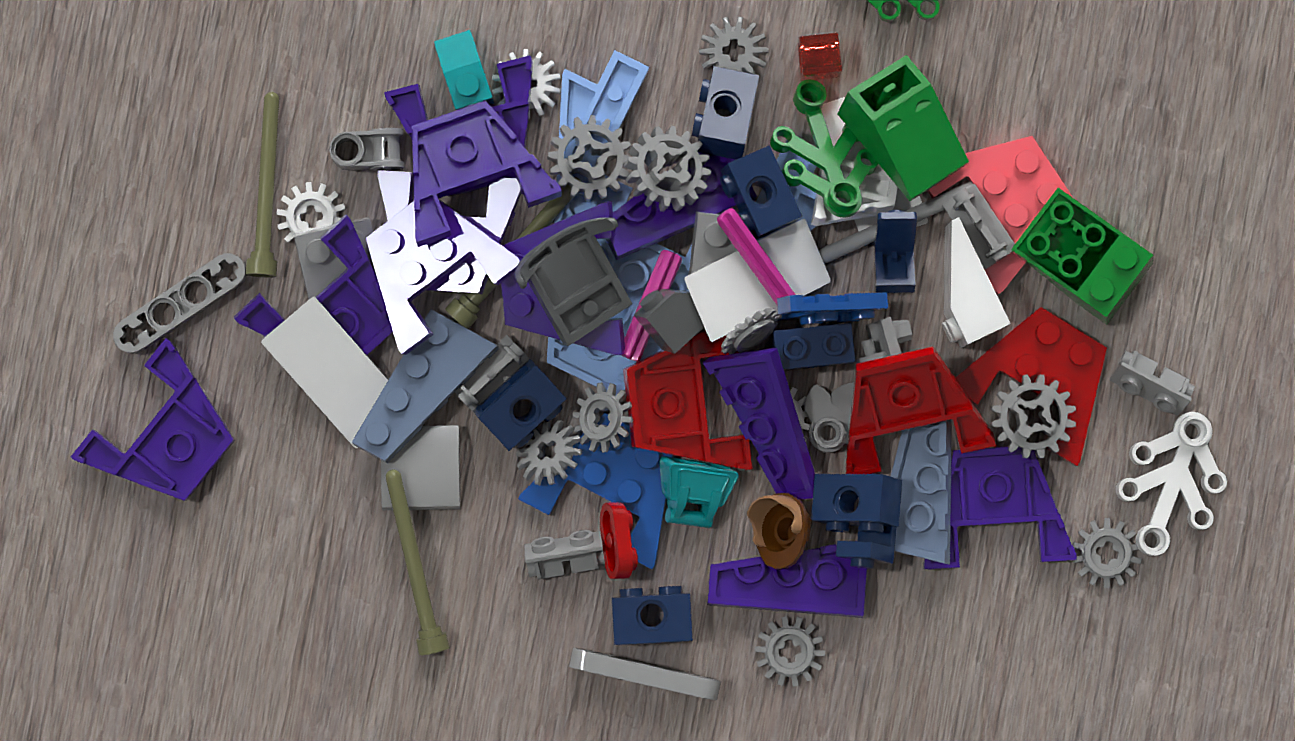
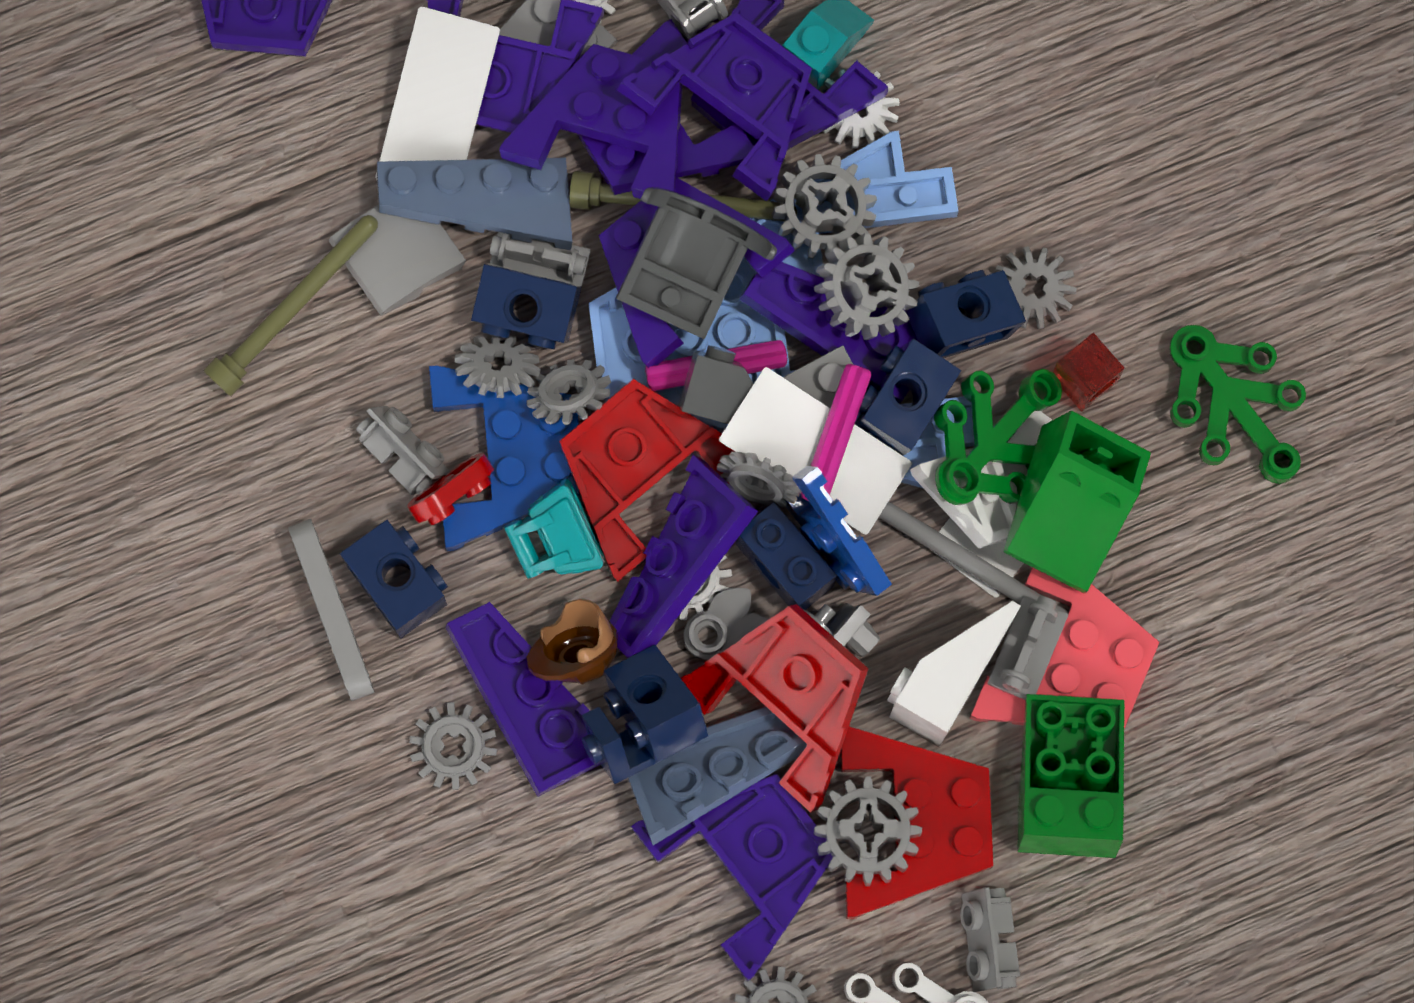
camera: 50 degrees right, 10 degrees down
(895, 252) = (943, 576): dark blue bracket -> none

